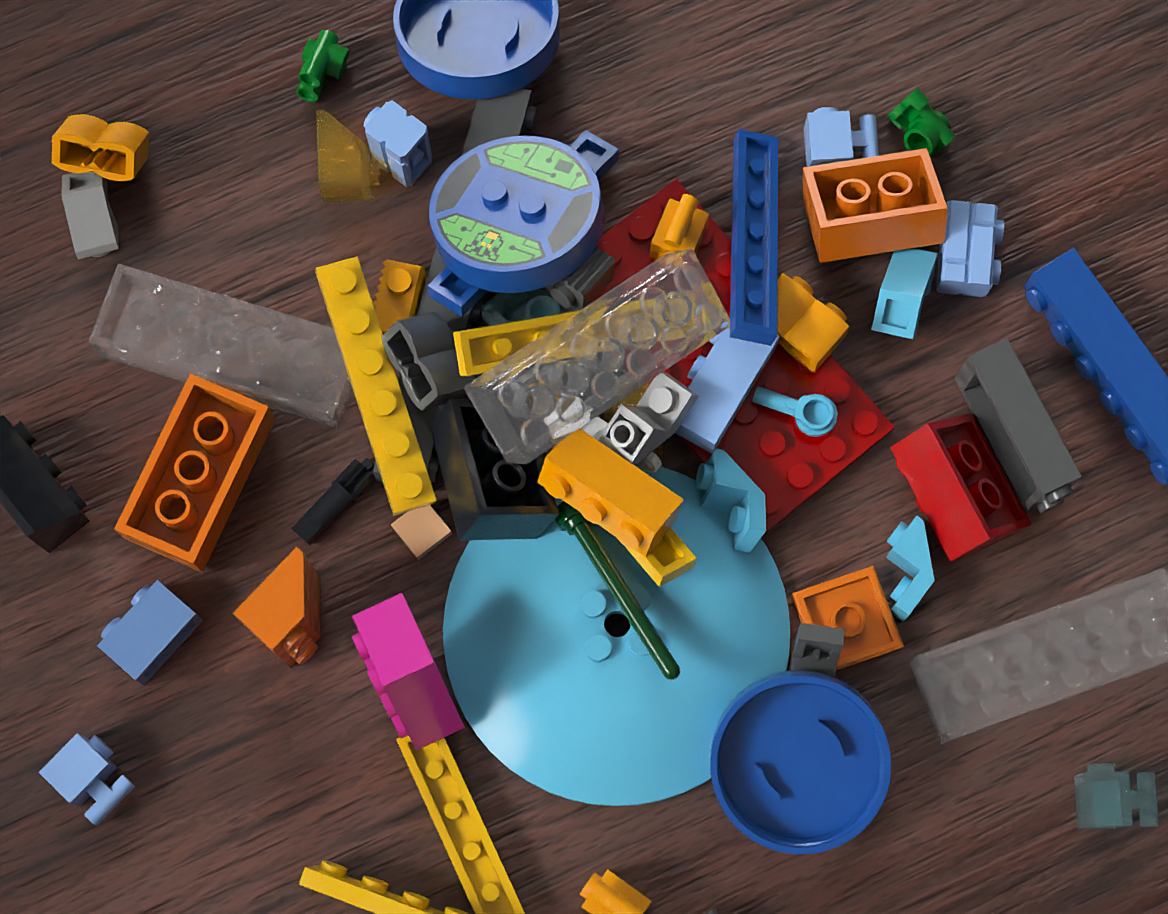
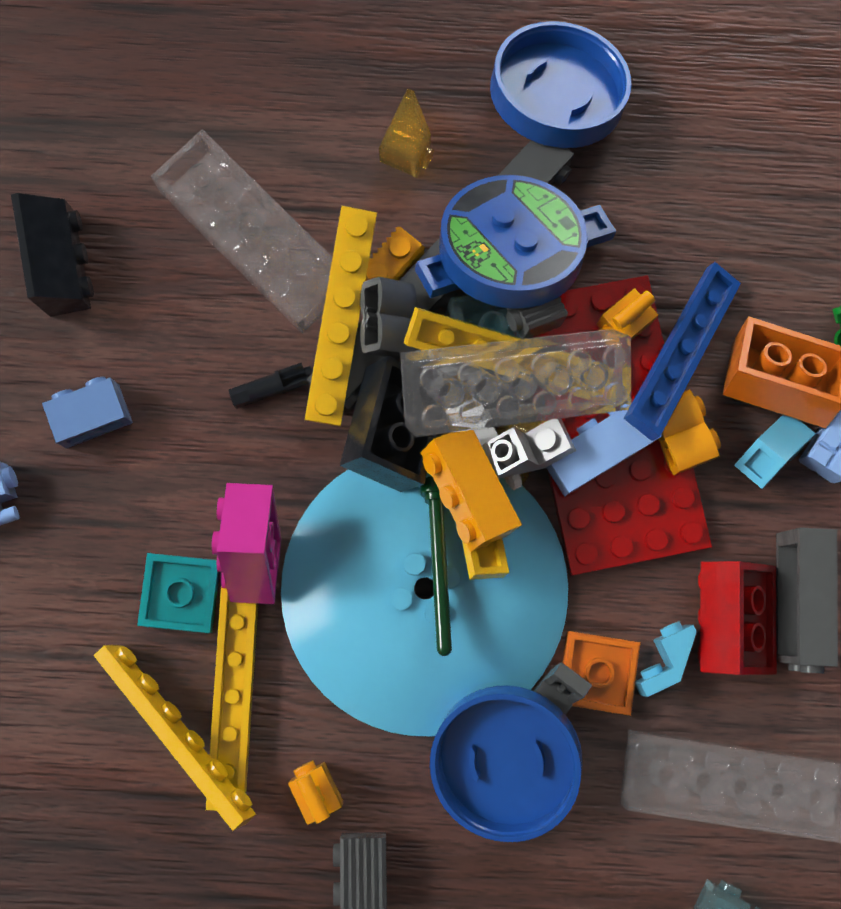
camera: 25 degrees right, 5 degrees up
(89, 214) = (204, 82): light grey slope -> none
(91, 144) = (235, 35): light orange brick -> none
(195, 473) = (179, 313): orange brick -> none
(286, 610) = (186, 450): orange slope -> none
(320, 59) = (432, 53): green plate -> none
(354, 773) = (179, 593): none -> teal plate
(398, 142) = (455, 143): light blue brick -> none
(421, 530) = (321, 440): light nougat tile -> none
(731, 490) = (562, 529): medium azure slope -> none
(813, 413) = (656, 506): medium azure plate -> none
(831, 140) = (781, 303): light blue brick -> none

